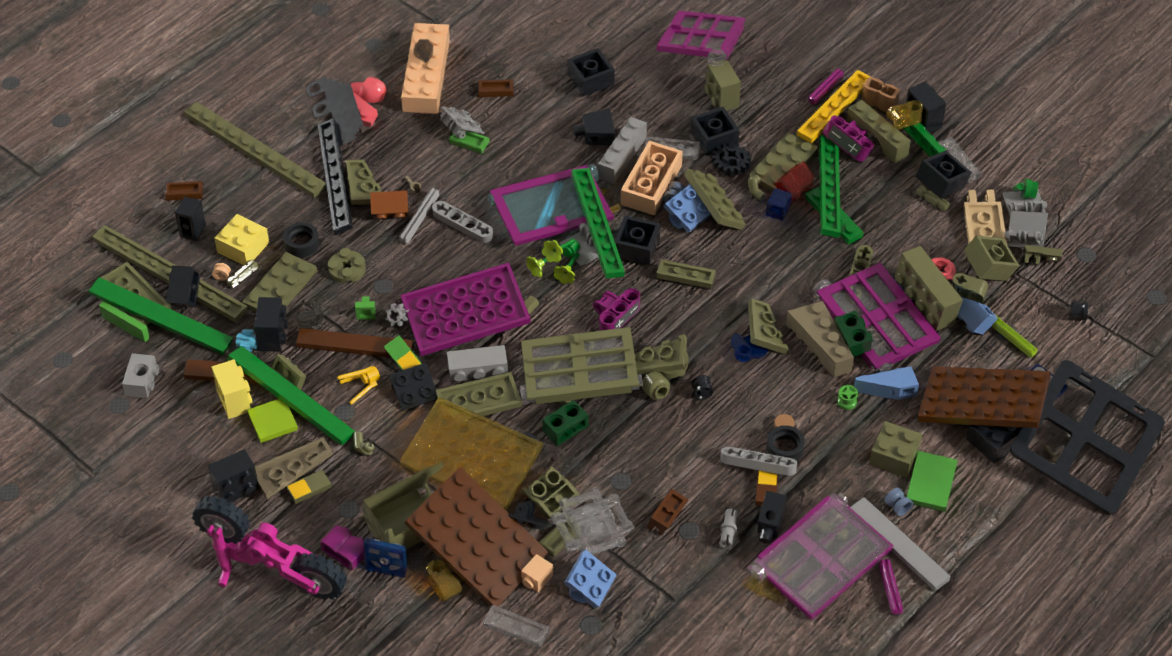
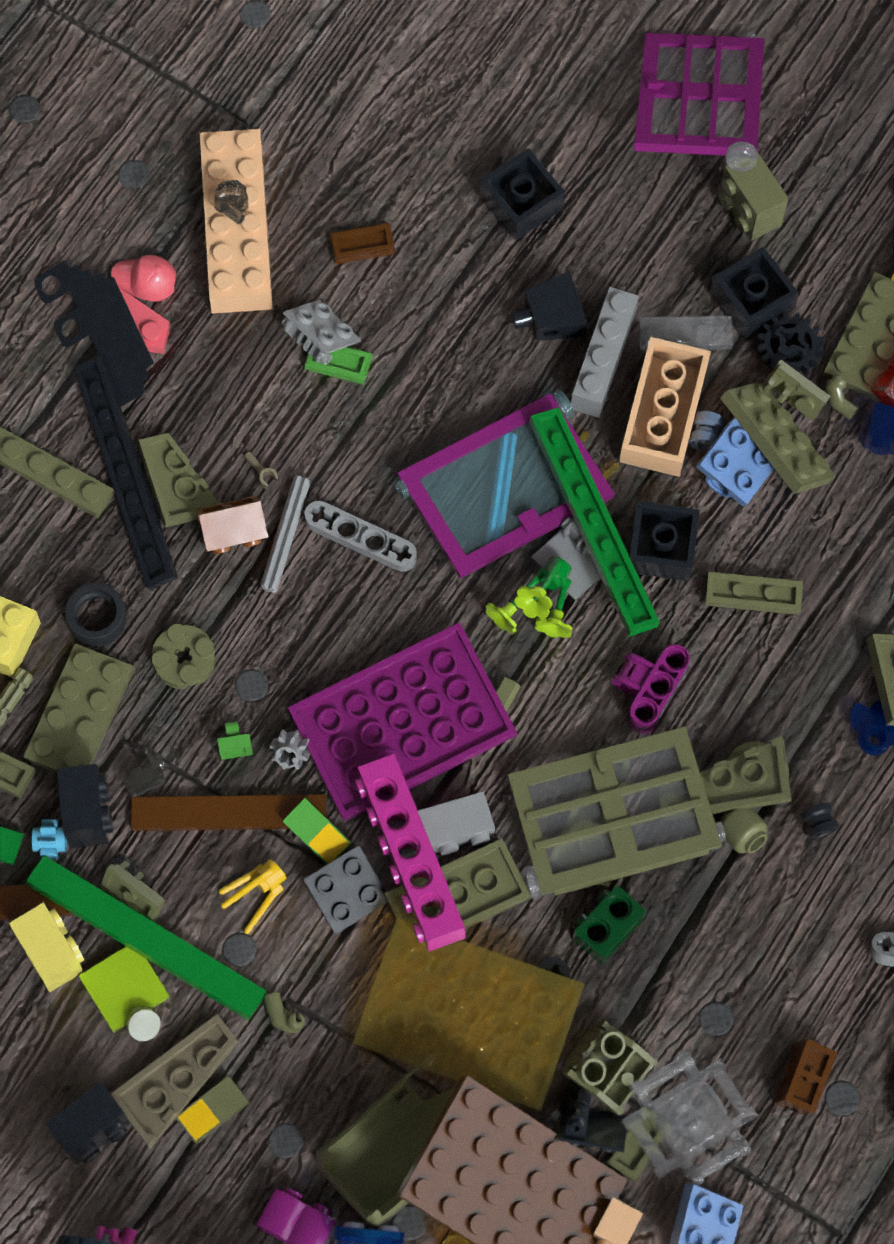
camera: 10 degrees left, 20 degrees up
(278, 437) = (143, 1023): none -> tile
(454, 364) = (387, 776): none -> dark pink brick
(730, 179) = (796, 390): none -> olive plate

